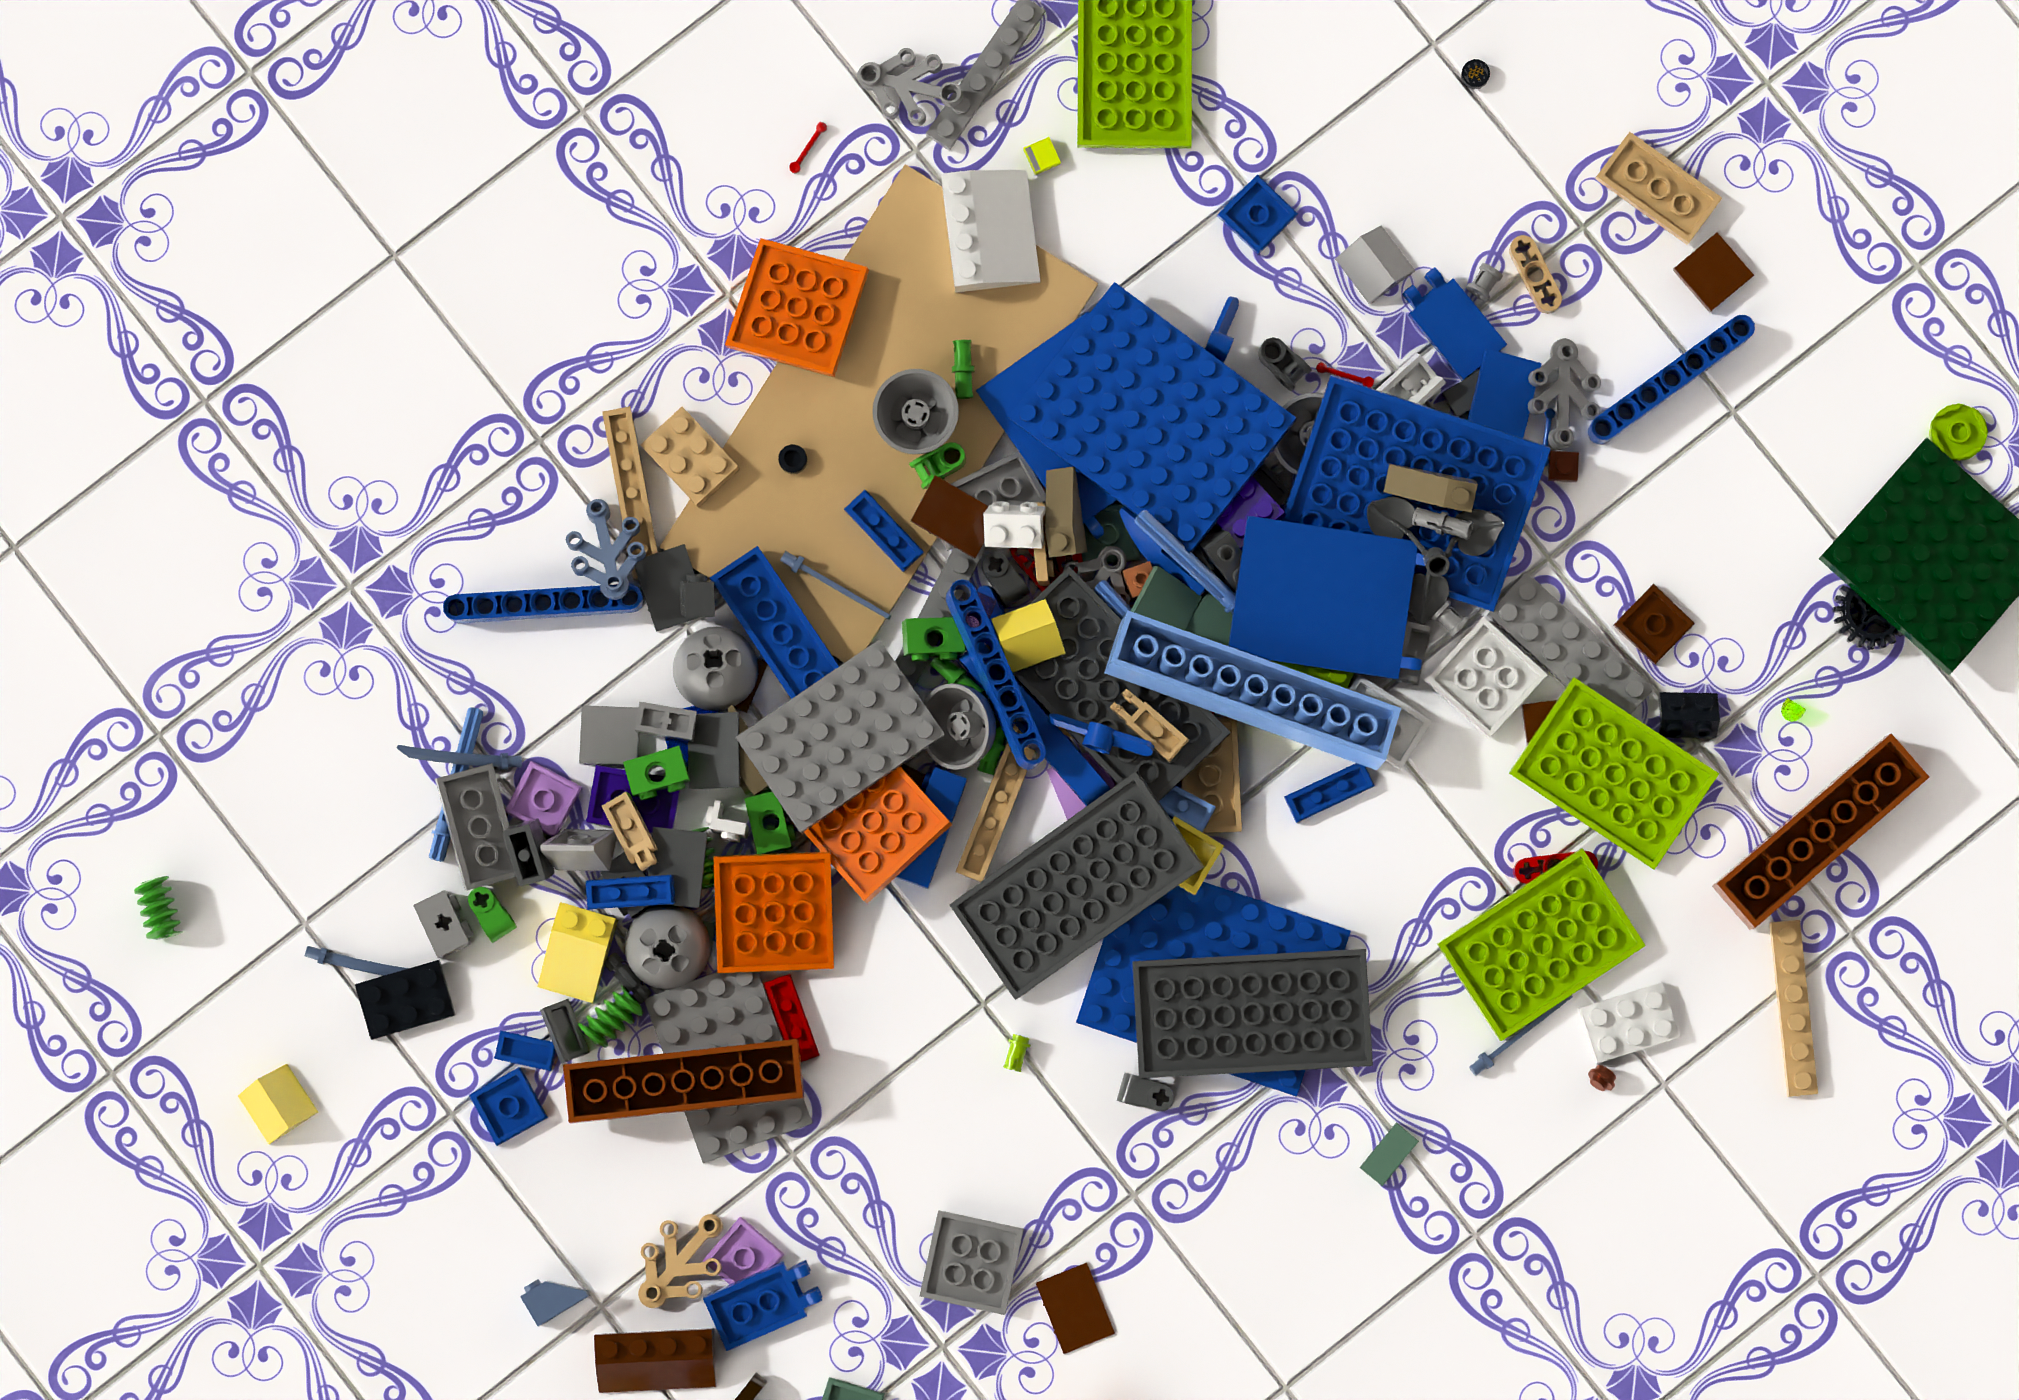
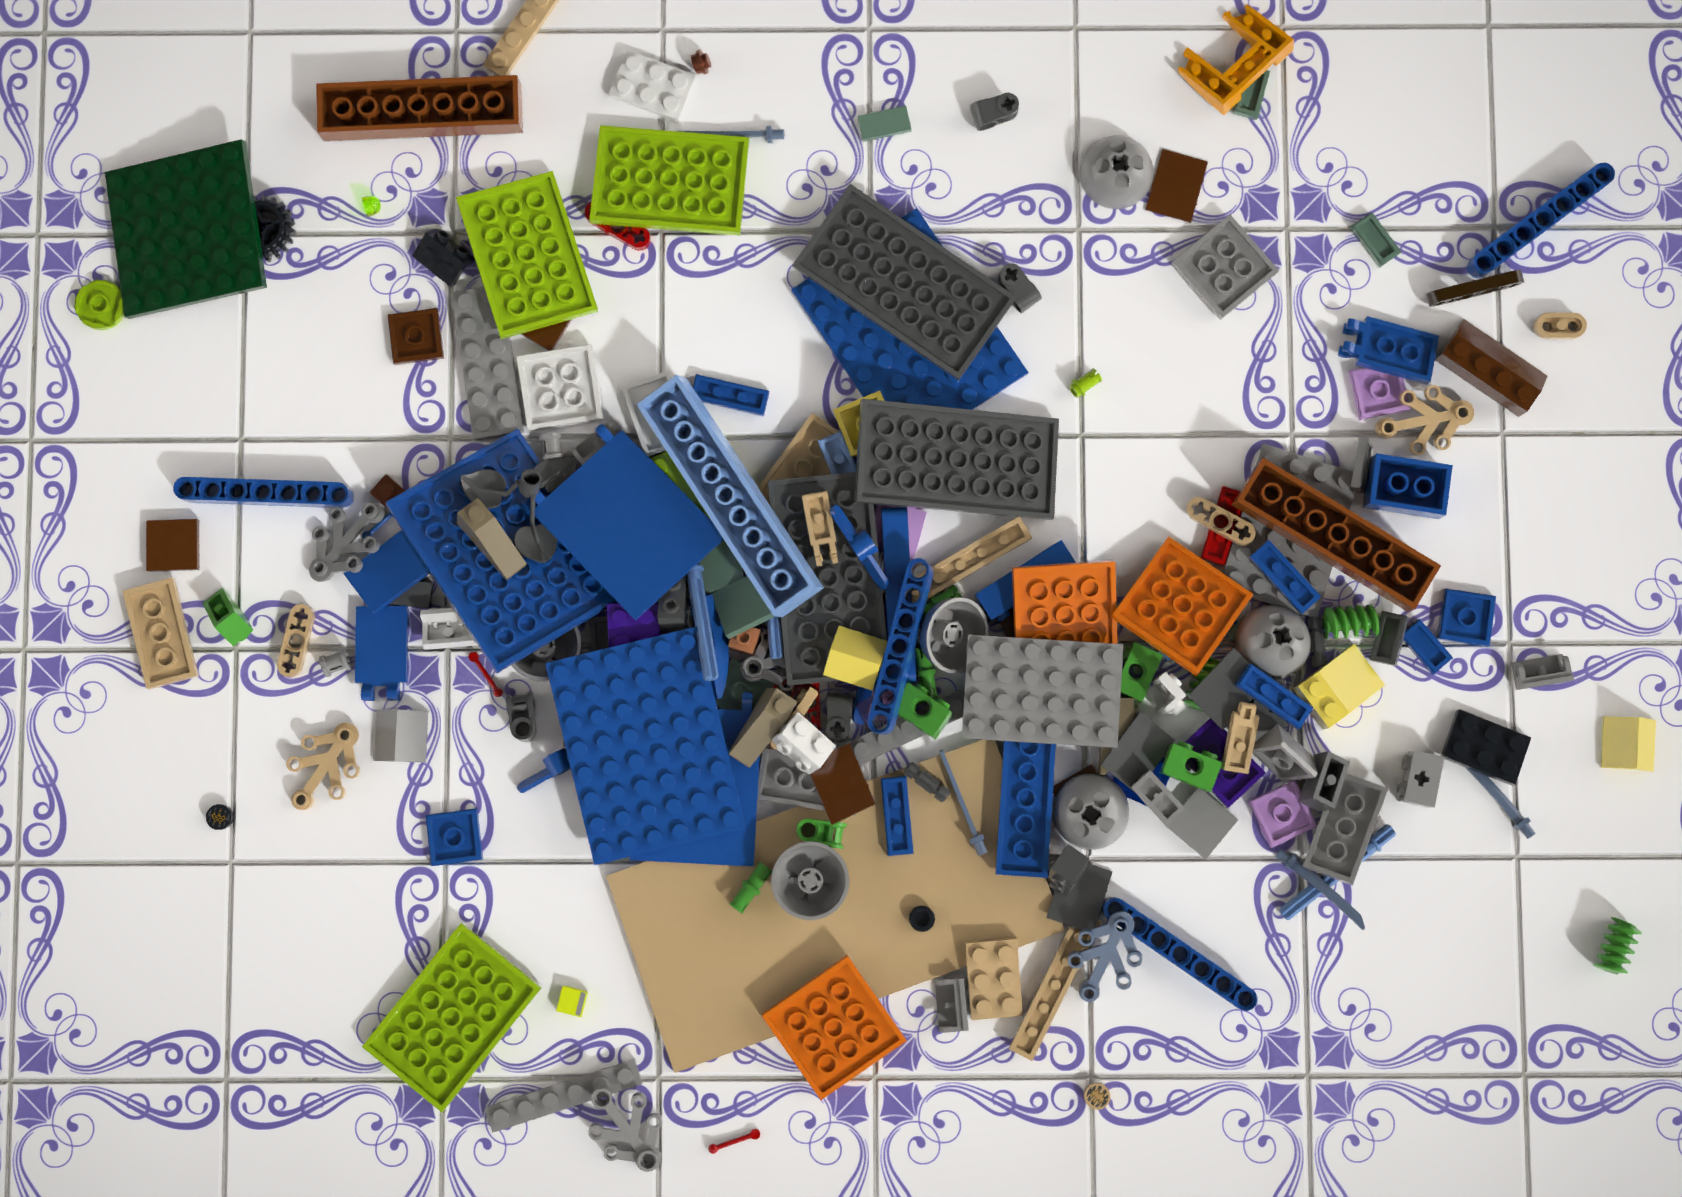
camera: 140 degrees left, 0 degrees up
(404, 1107) = (1541, 671): none -> light grey hinge
(494, 918) = (1381, 757): bright green piece -> none
(522, 426) = (1097, 1096): none -> tan tile
(550, 1299) = (1535, 461): sand blue slope -> none
(651, 1182) = (1408, 486): none -> blue brick
(701, 1009) = (1285, 577): none -> blue plate
(707, 1171) = (1361, 465): none -> light grey tile
(709, 406) = (951, 1004): none -> light grey hinge
(776, 1028) = (1234, 537): none -> tan beam
(880, 580) = (927, 782): none -> dark grey axle
(990, 229) = (651, 975): white slope -> none
(1123, 1294) = (1109, 182): none -> light grey piece
(1299, 1239) = (990, 111): none -> dark grey piece
(1420, 191) = (327, 763): none -> tan plant
(1442, 523) = (503, 509): light grey pin -> none
(1611, 247) = (227, 617): none -> bright green slope

